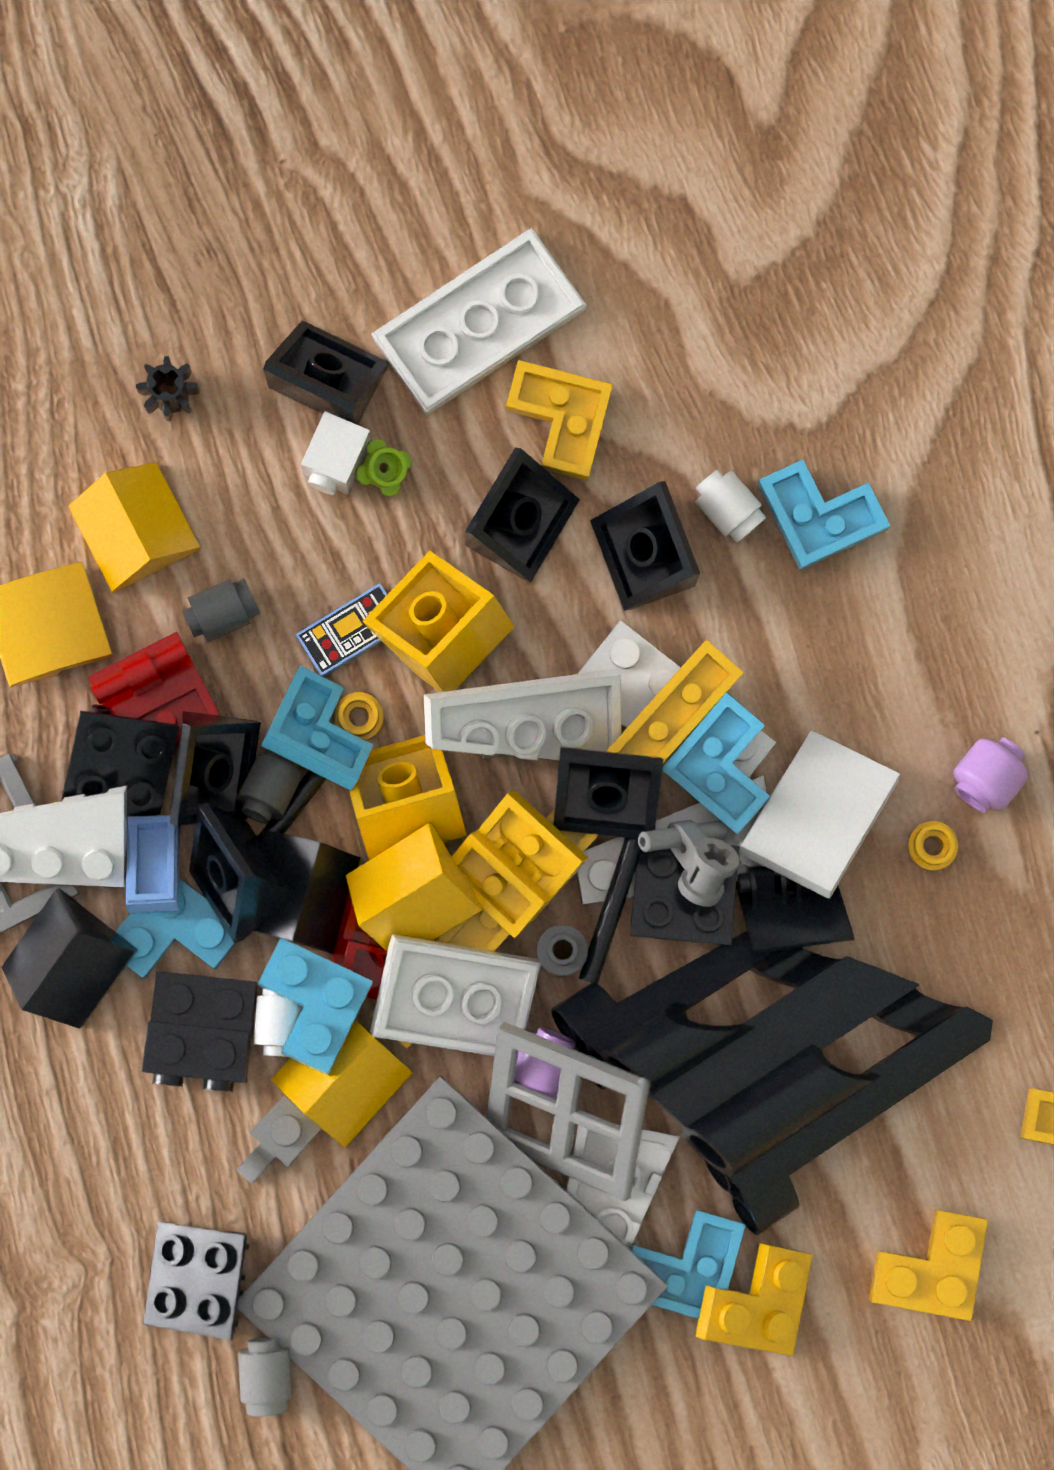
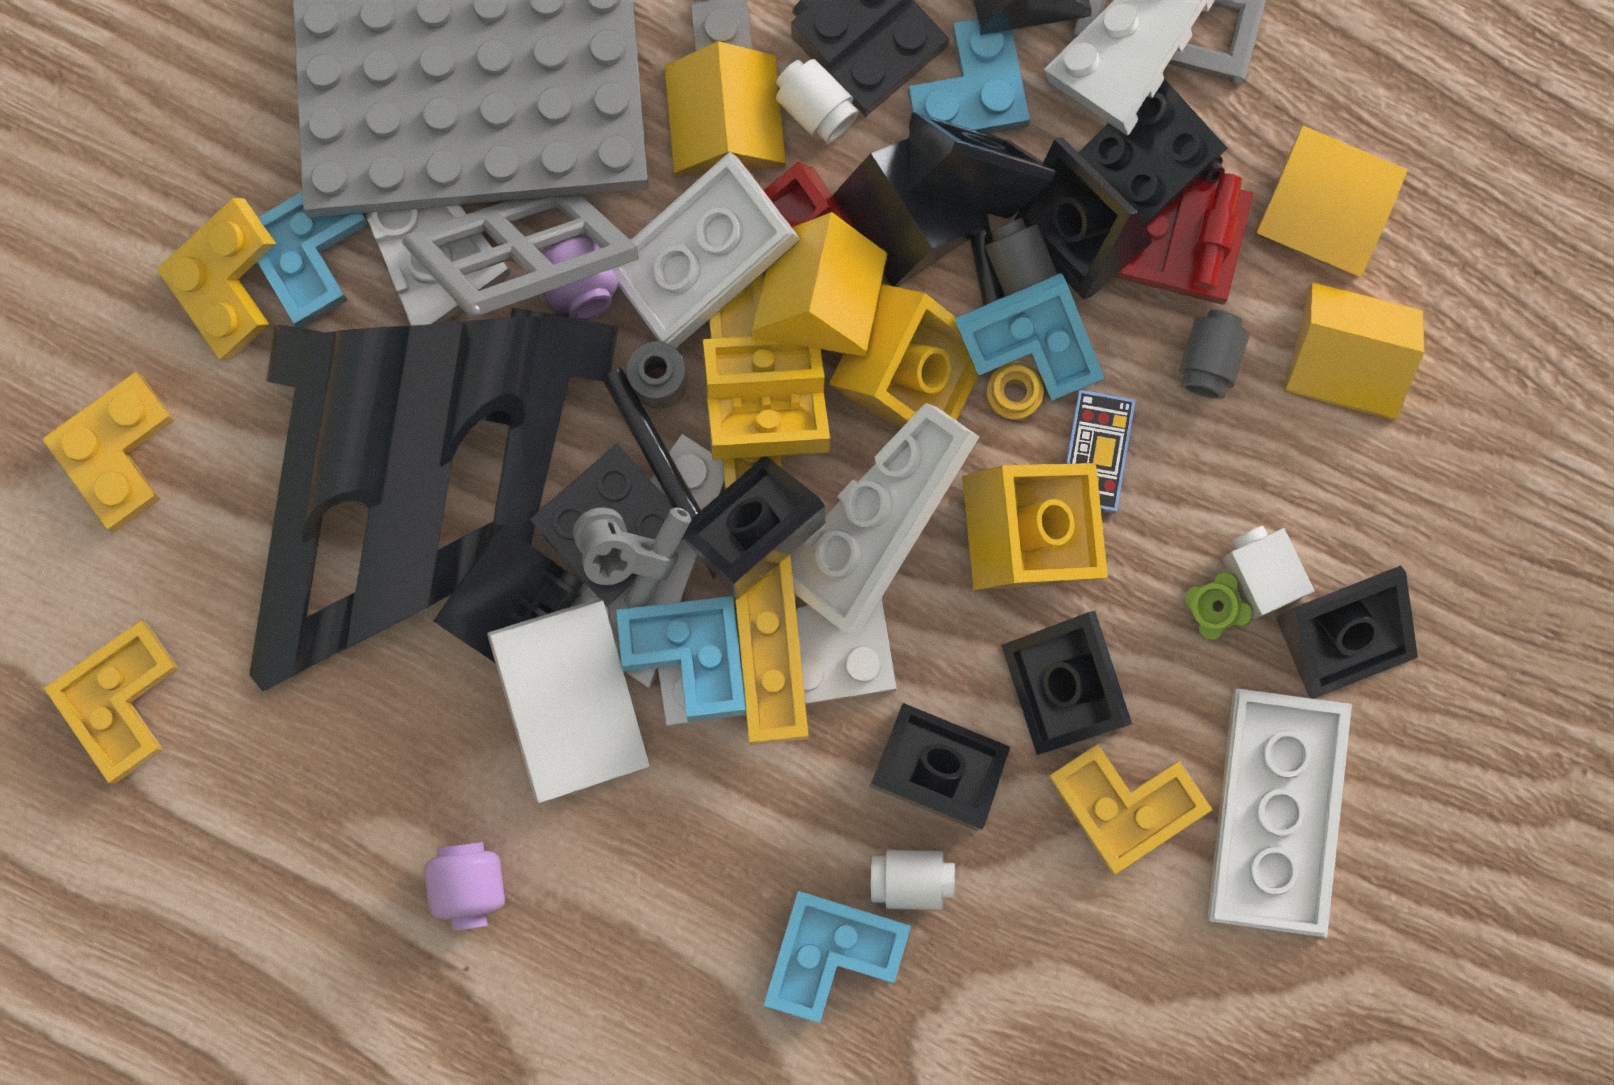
camera: 140 degrees right, 0 degrees up
(152, 864) = (1040, 105): light blue tile -> none
(171, 376) = (1462, 467): black gear -> none
(329, 1001) = (798, 145): medium azure plate -> none
(946, 838) = (435, 779): yellow plate -> none

